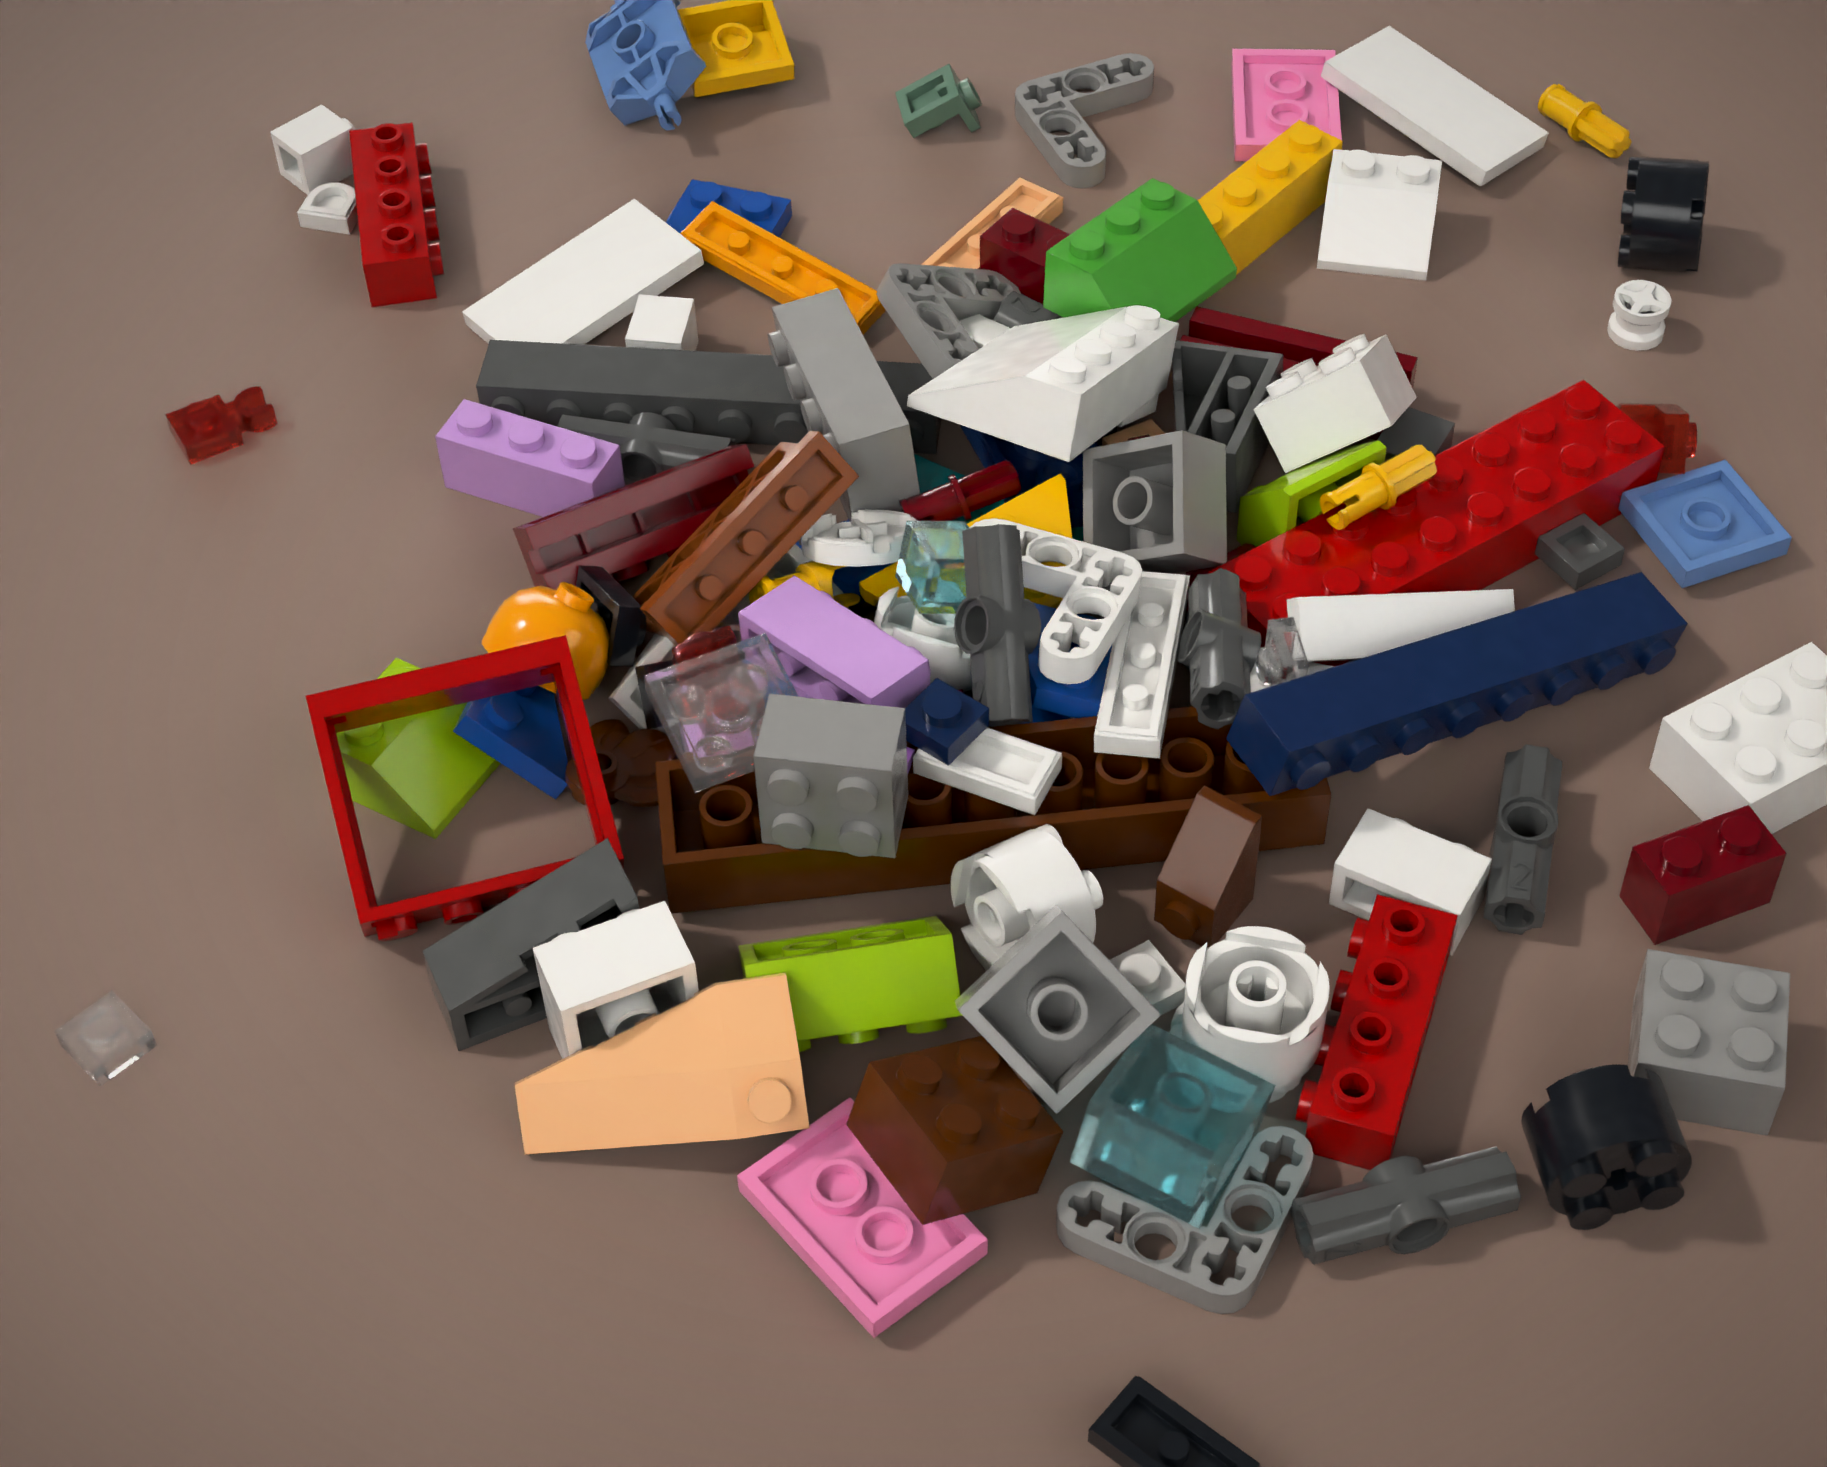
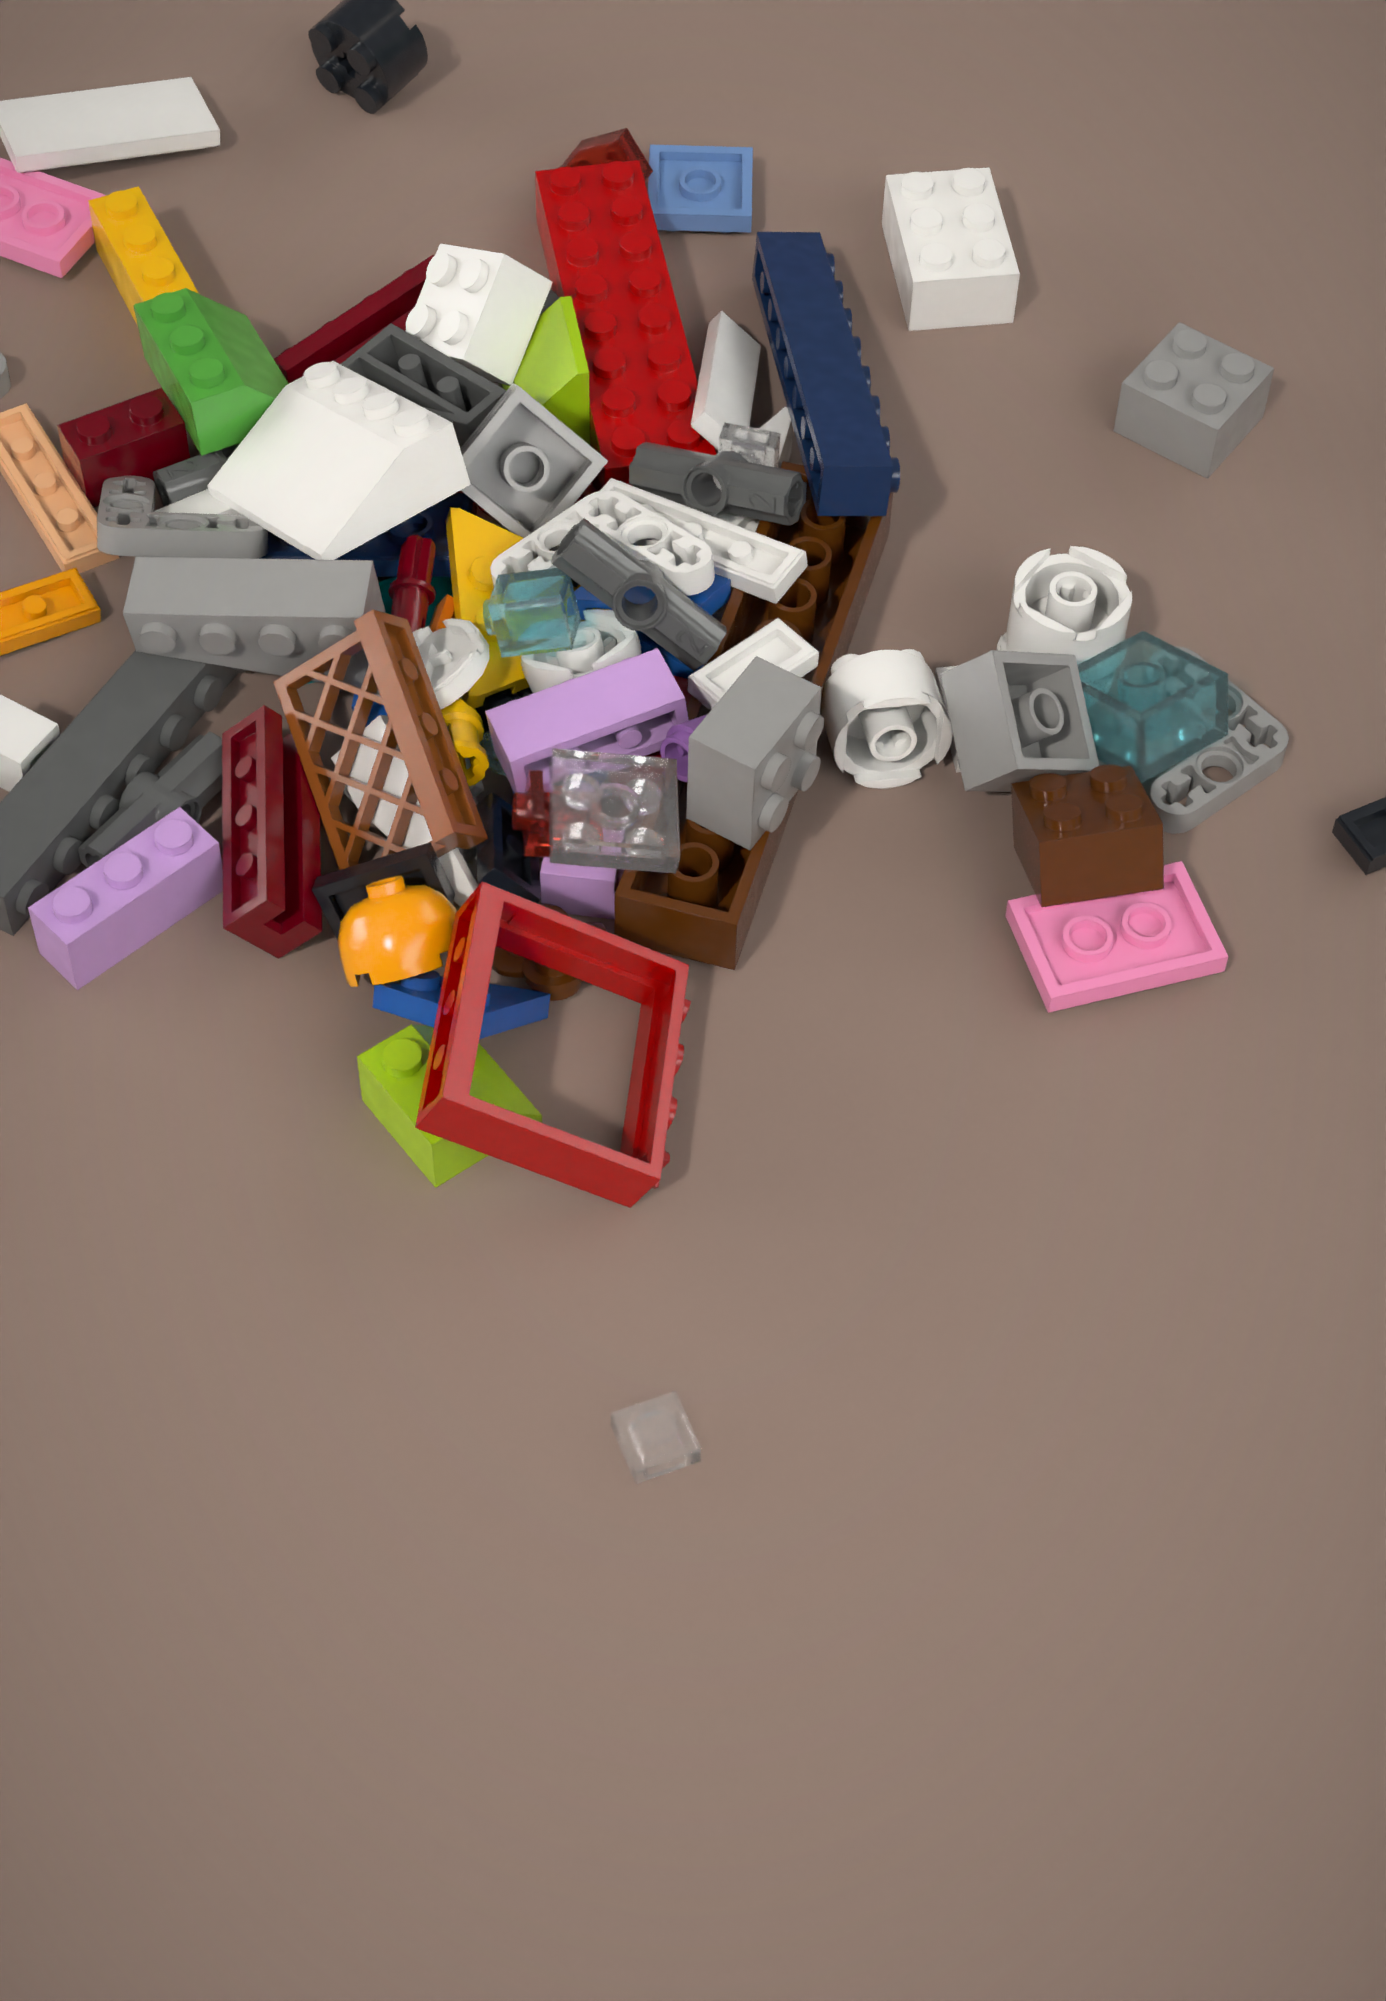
camera: 70 degrees left, 5 degrees up
(488, 967) = (755, 1056): dark grey wedge -> none
(613, 976) = (843, 1008): white brick -> none
(689, 1075) = (956, 982): light nougat wedge -> none
(863, 978) = (882, 863): lime slope -> none
(944, 721) = (708, 670): dark blue plate -> none
(1209, 869) = (908, 592): reddish brown slope -> none
(1379, 214) = (222, 213): white slope -> none
(1379, 485) = (603, 323): yellow axle -> none
(1379, 1032) = (1041, 517): red brick -> none
(1405, 1205) = (1252, 616): dark grey piece -> none
(1411, 866) = (963, 494): white brick -> none
(1523, 840) = (959, 415): dark grey piece -> none
(1579, 551) = (690, 265): dark grey plate -> none
(1584, 121) = (194, 51): yellow axle -> none
(1607, 1145) = (1273, 480): black brick -> none
(1639, 315) = (450, 122): white wheel -> none
(1702, 874) = (1046, 337): dark red brick -> none

